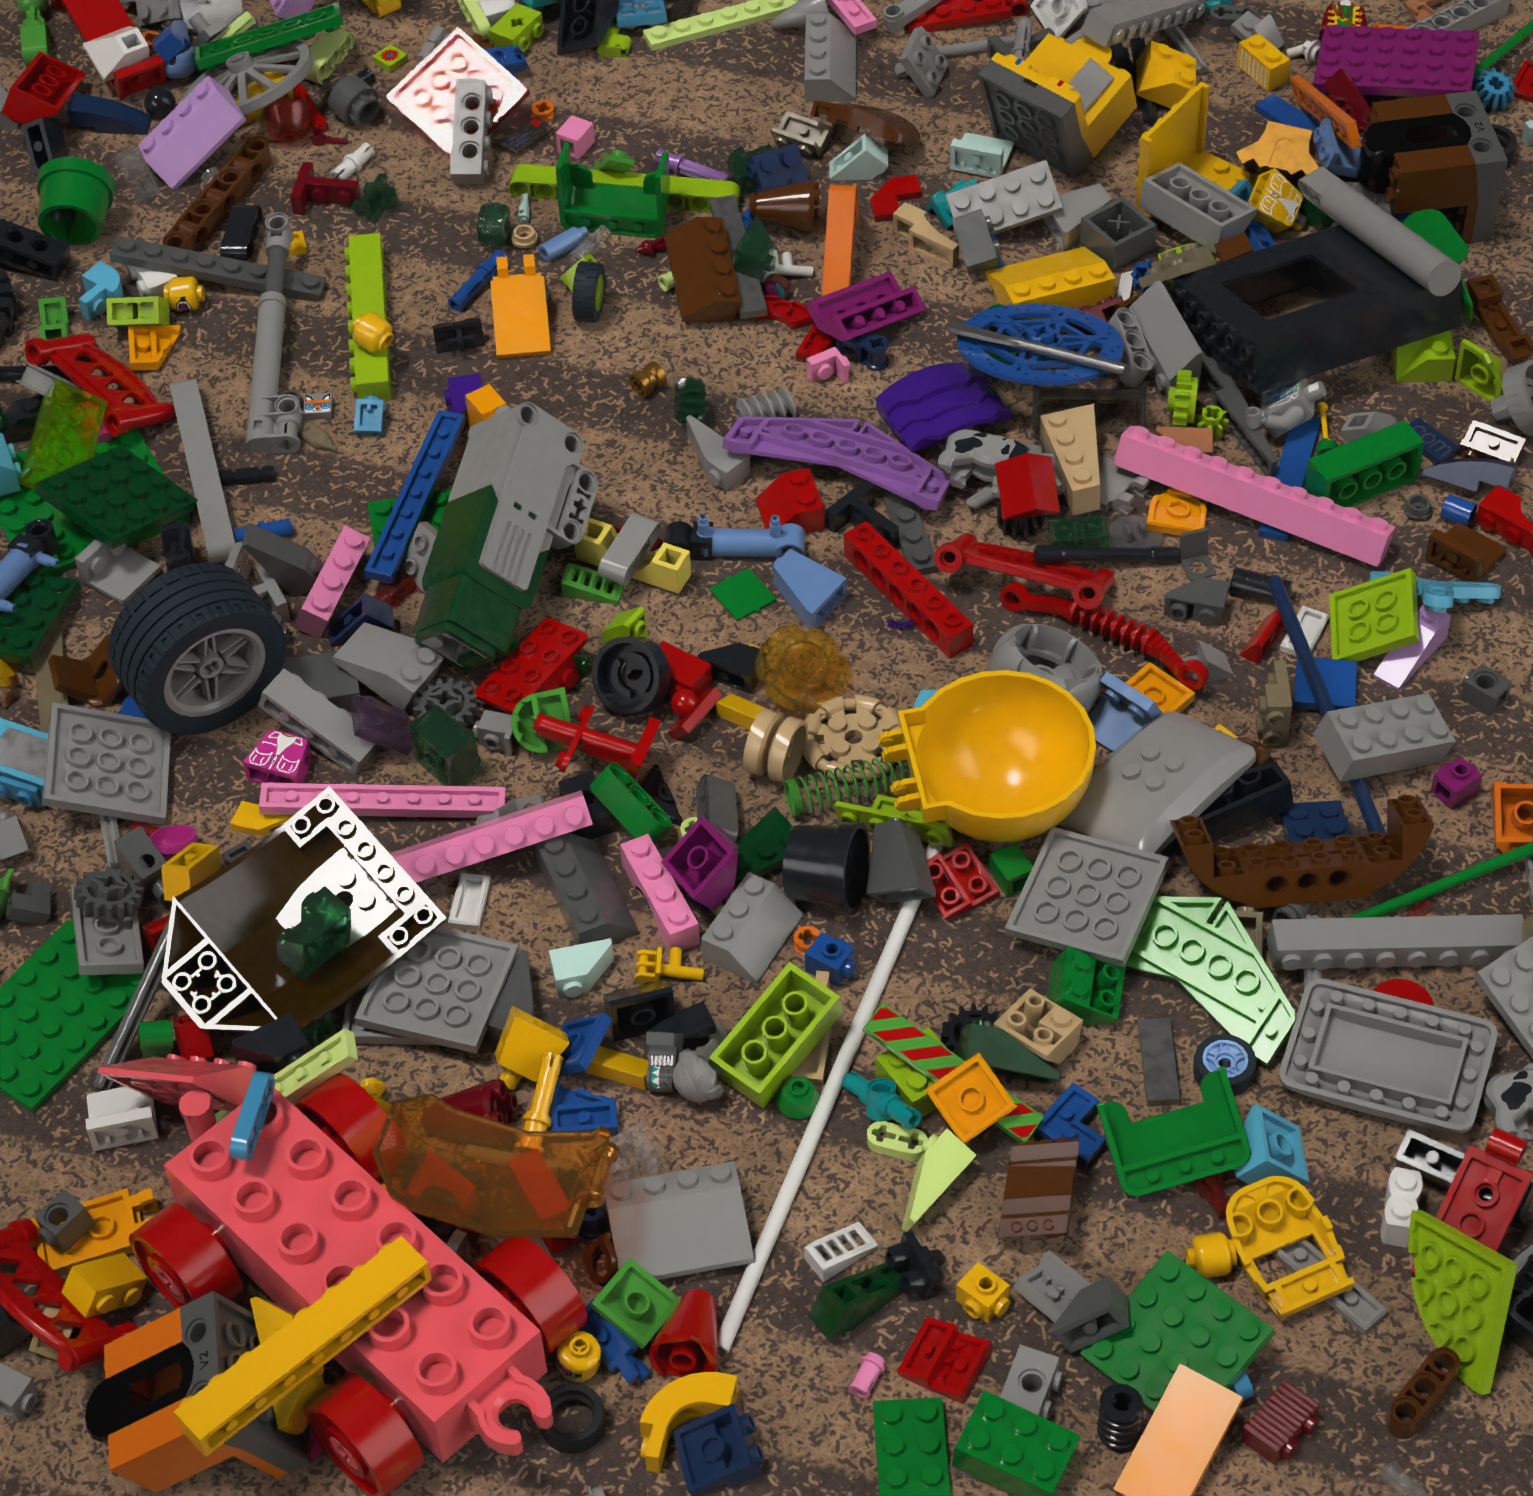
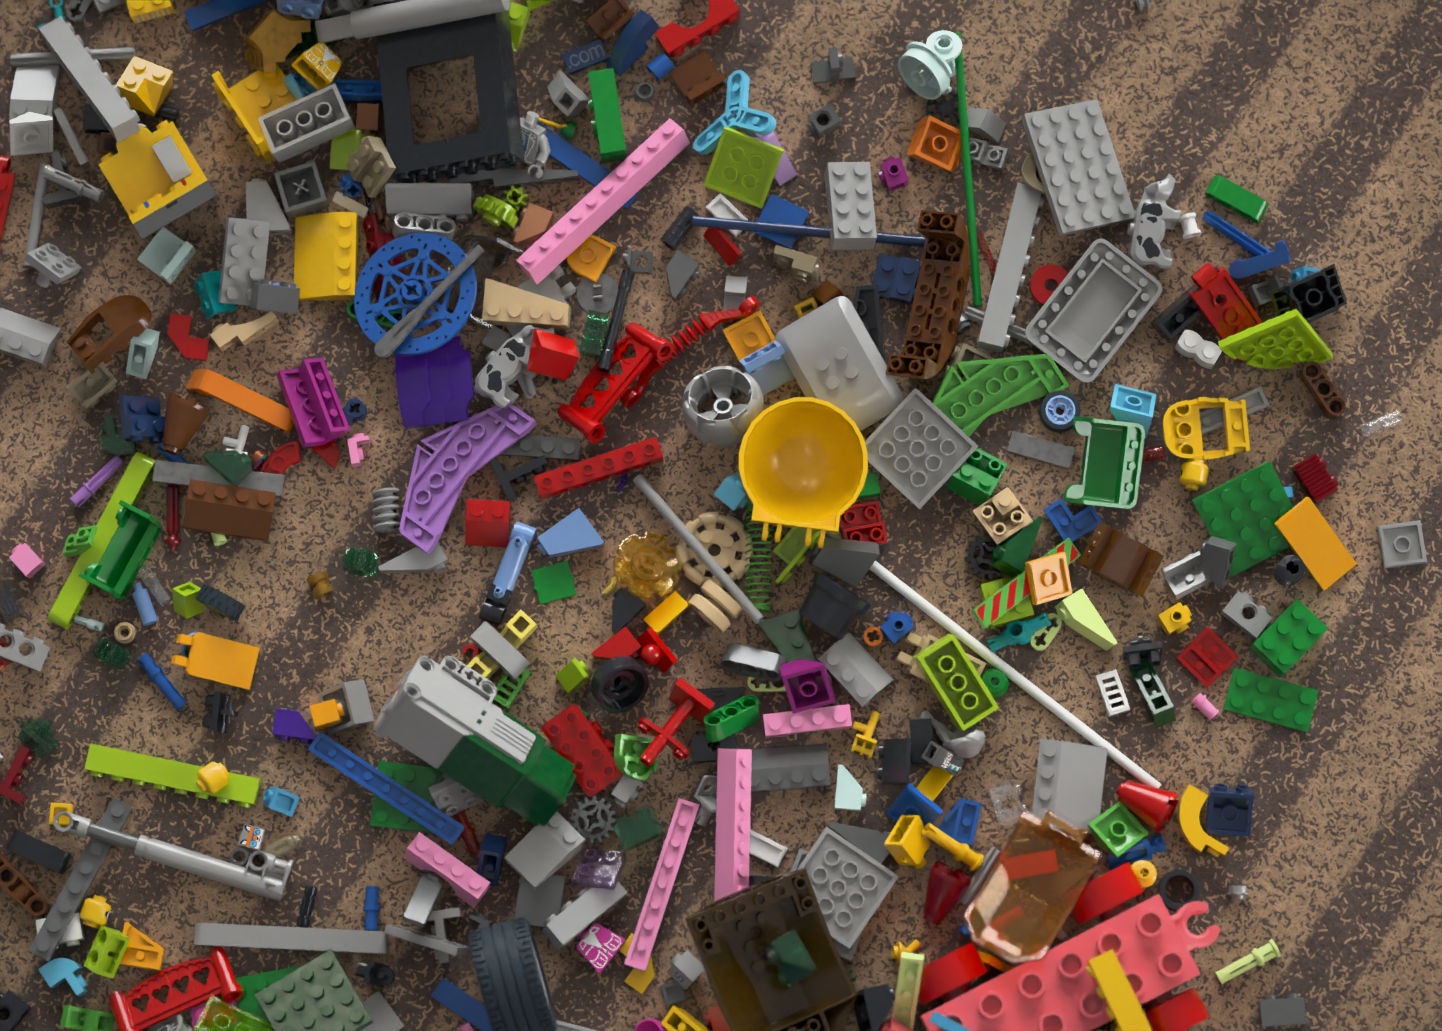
camera: 70 degrees left, 30 degrees up
(843, 711) = (698, 549): none -> light grey piece

